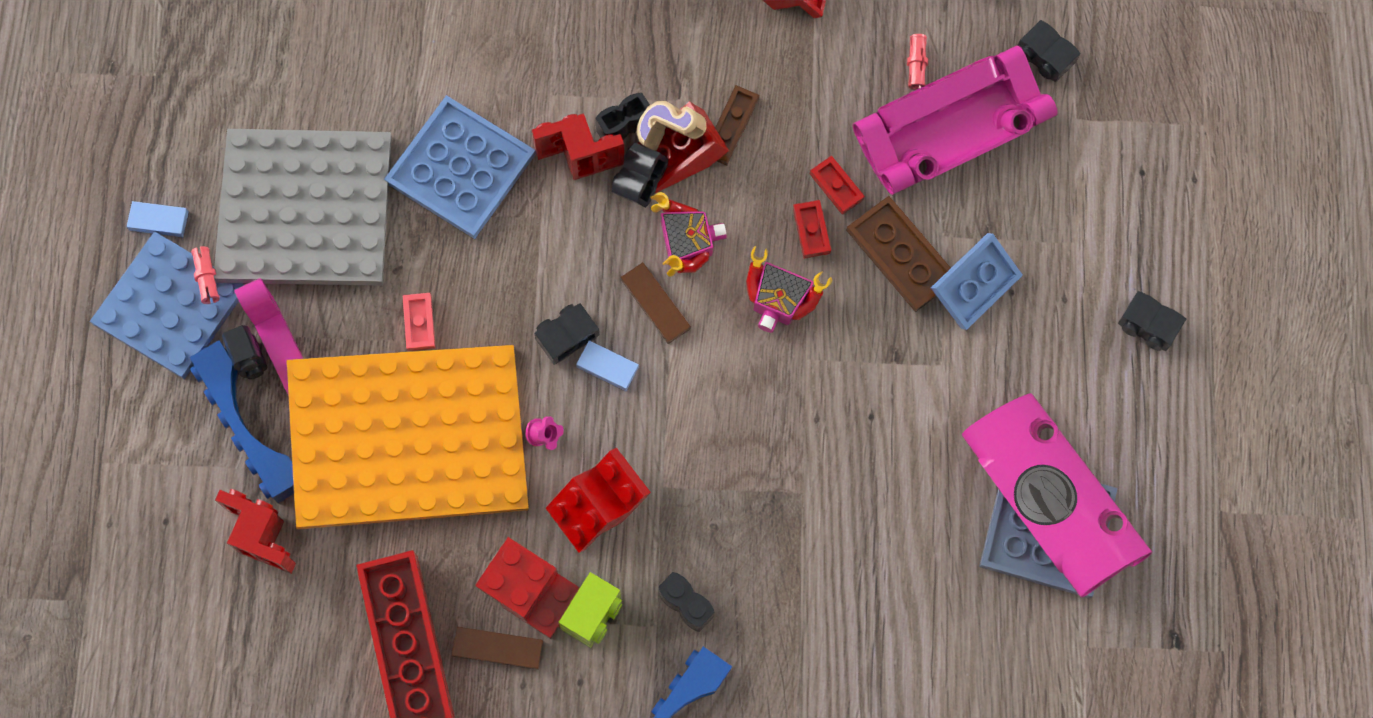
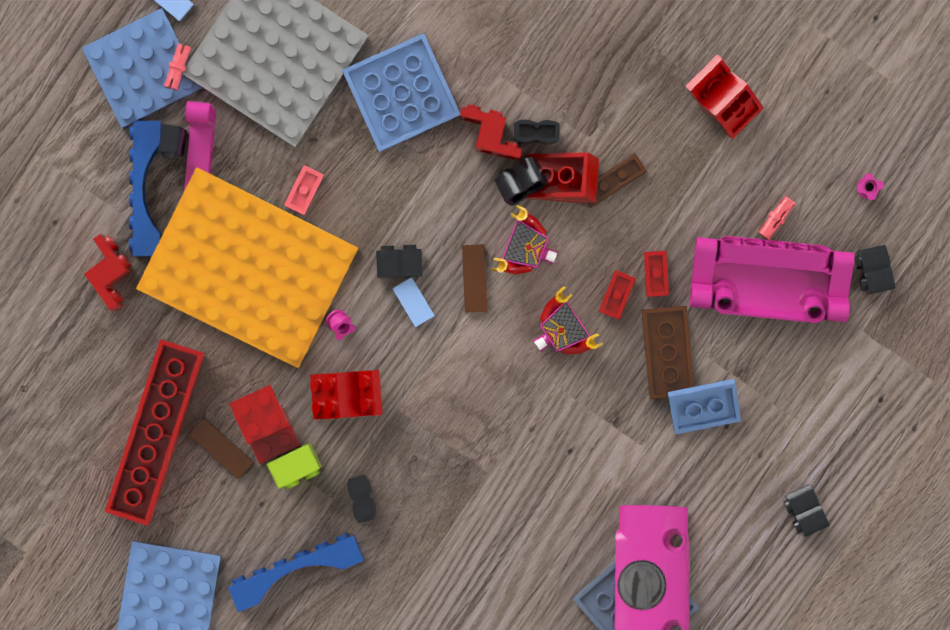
camera: 40 degrees right, 15 degrees up
(663, 115) = (567, 158): tan animal -> none

